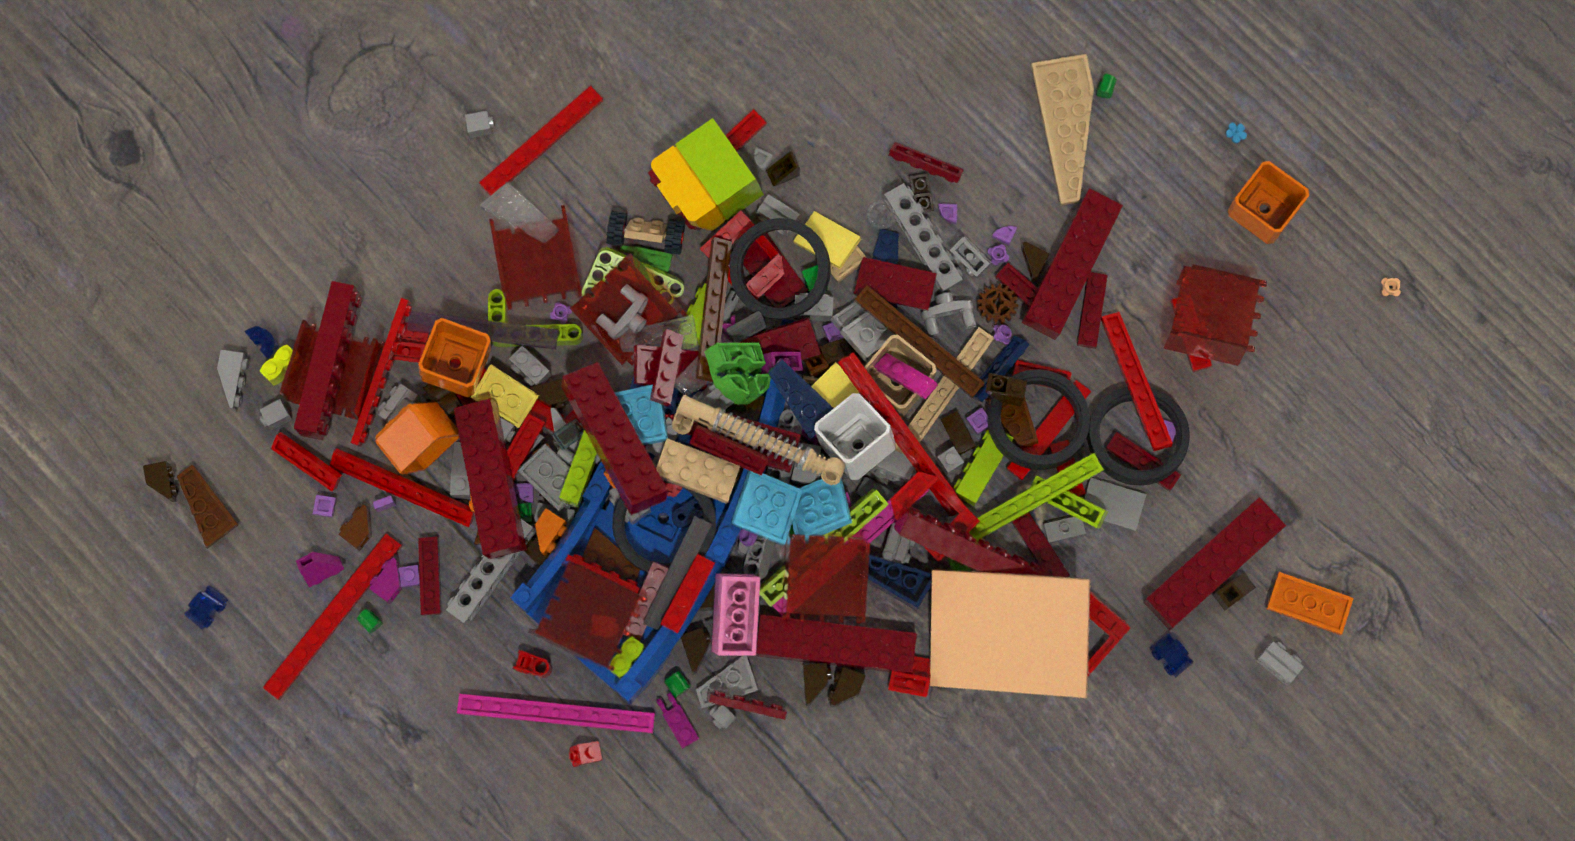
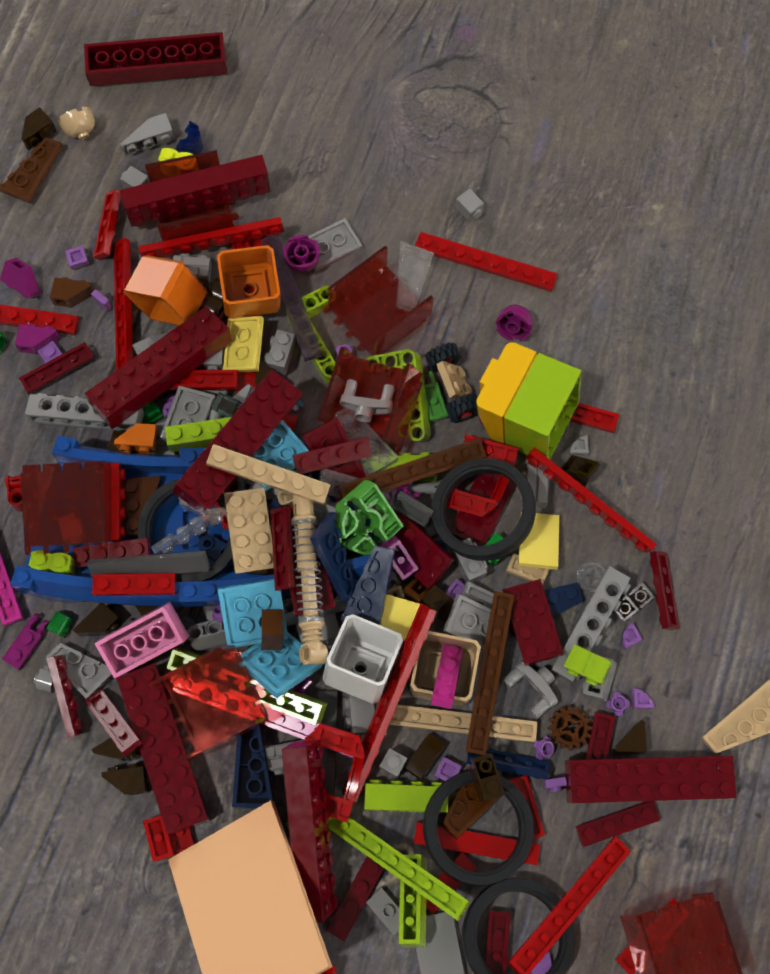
camera: 60 degrees right, 5 degrees down
(152, 331) = (155, 59): none -> dark red brick
(181, 438) = (77, 123): none -> tan cylinder
(444, 269) = (335, 243): none -> light grey tile
(445, 298) = (301, 253): none -> magenta cylinder
(618, 148) = (514, 322): none -> magenta cylinder
(663, 425) = (268, 474): none -> tan plate
(670, 527) = (197, 527): none -> clear wing
(759, 411) = (333, 556): none -> dark blue wing
(789, 497) = (271, 629): none -> reddish brown slope
(792, 674) = (113, 722): none -> plate
(812, 180) = (595, 505): none -> red plate
(957, 259) = (587, 665): none -> lime brick
(1036, 341) = (555, 784): none -> medium lavender plate

